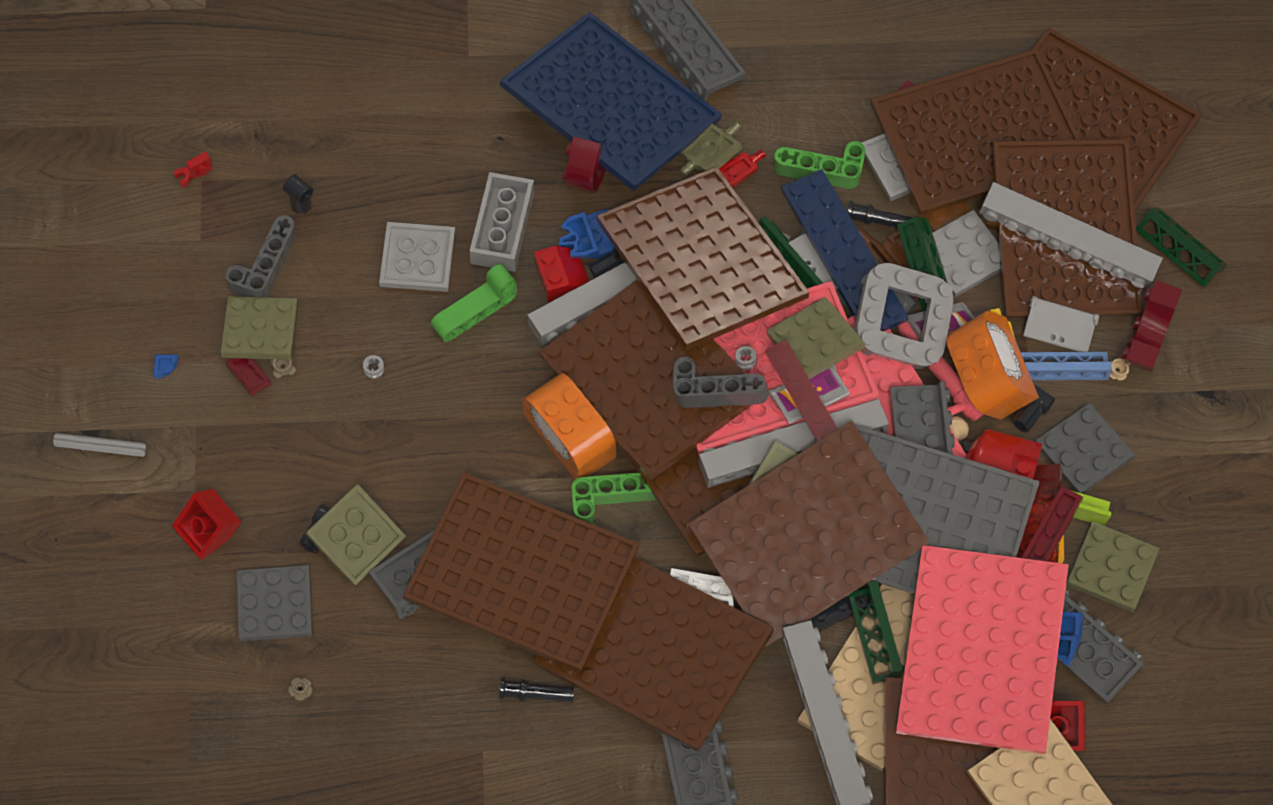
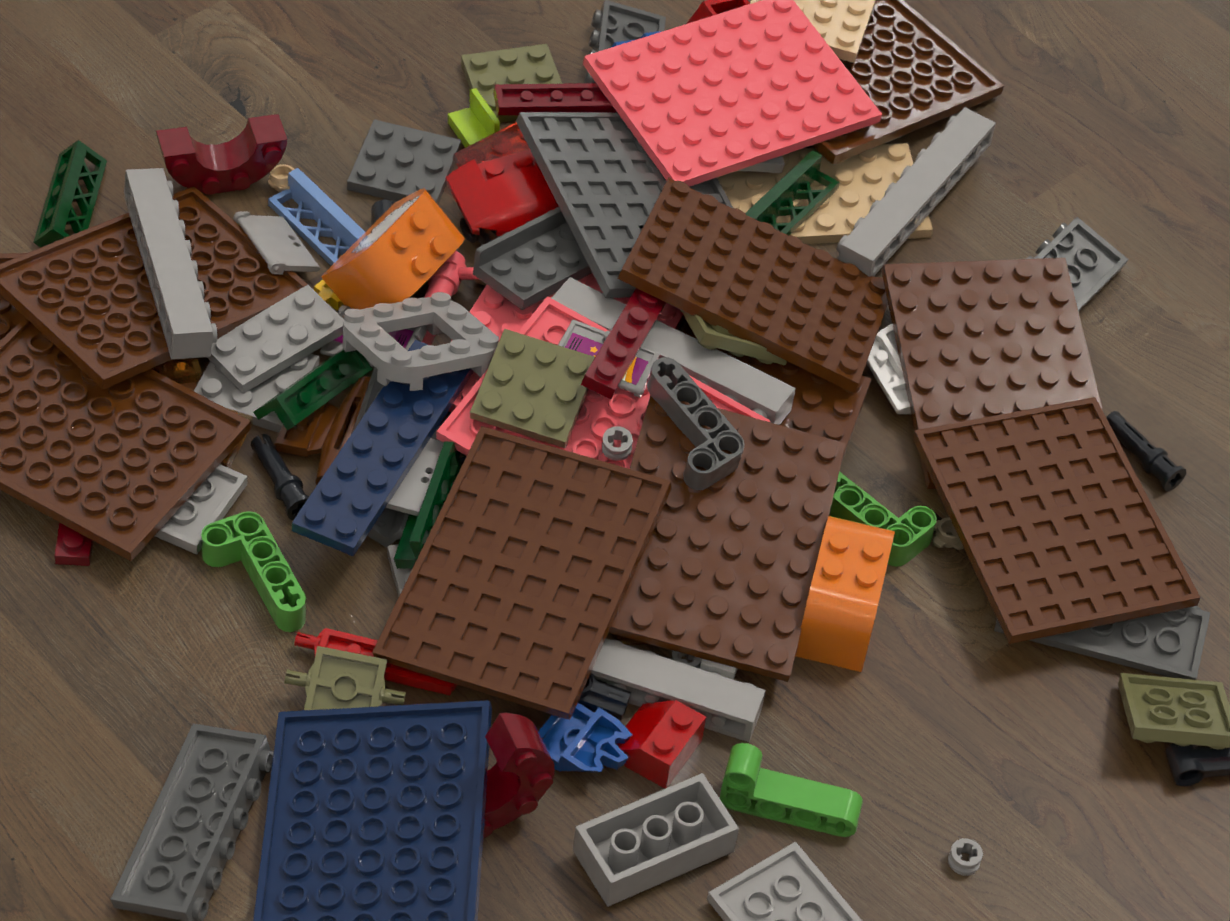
camera: 135 degrees left, 15 degrees down
(979, 270) = (276, 338): none -> light grey plate

